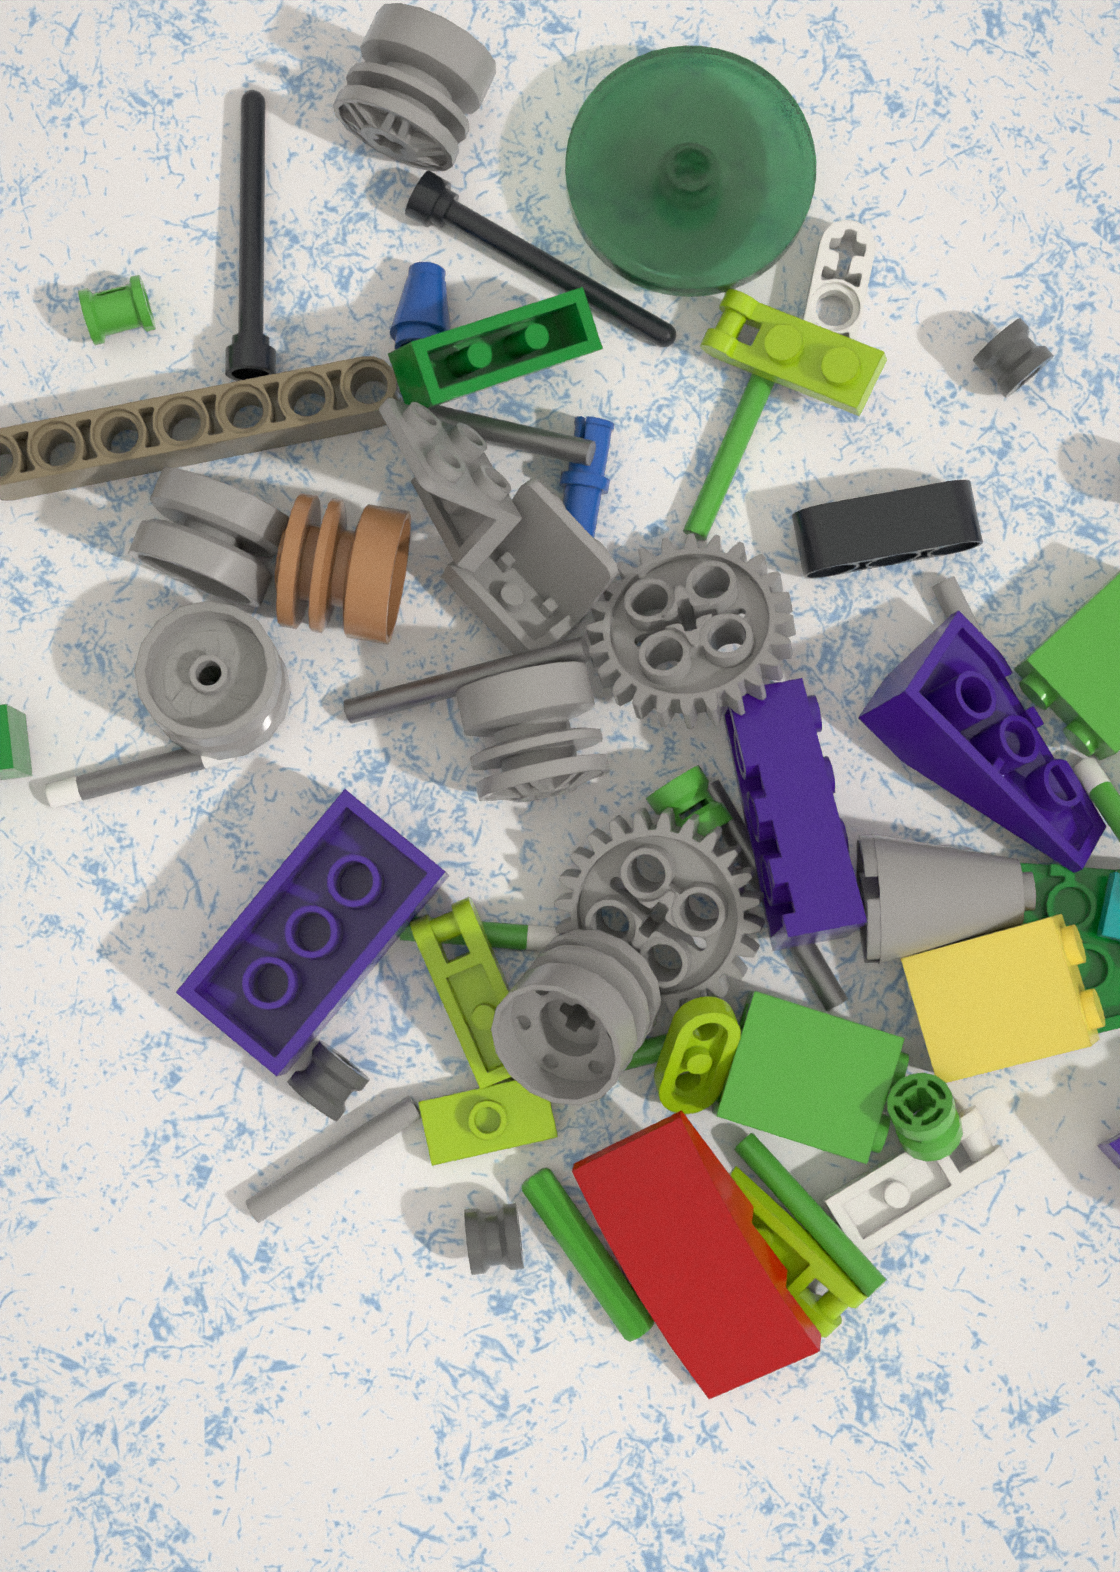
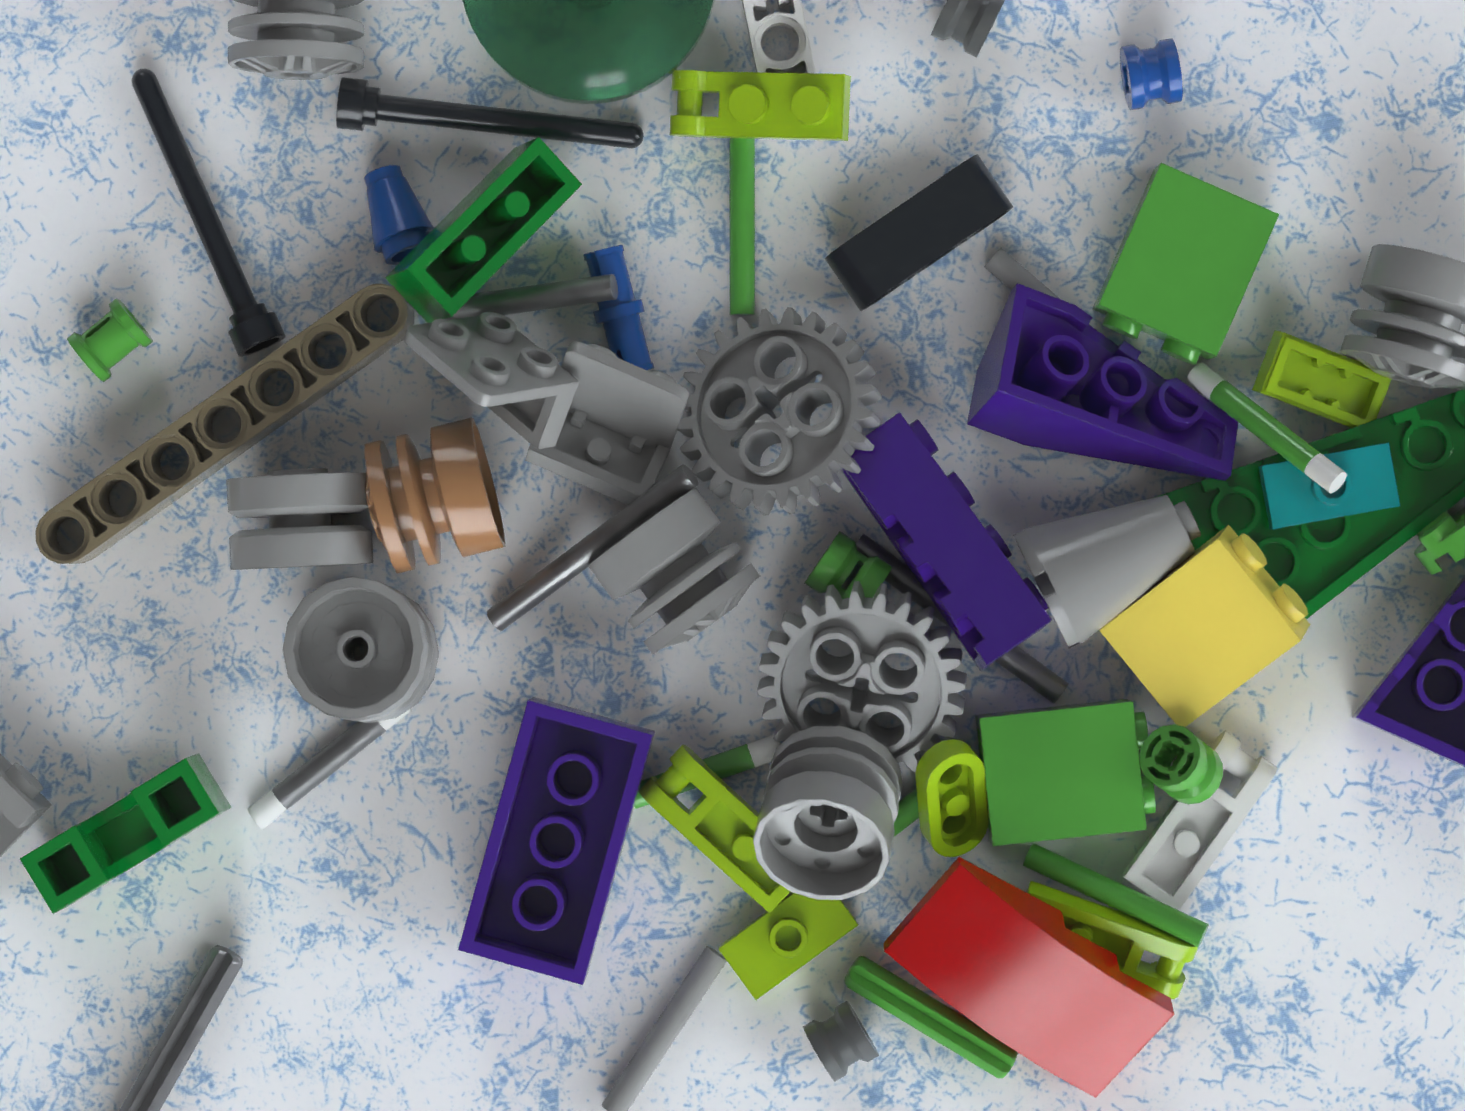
camera: 20 degrees left, 5 degrees up
(328, 1081) = (628, 965): dark grey wheel -> none

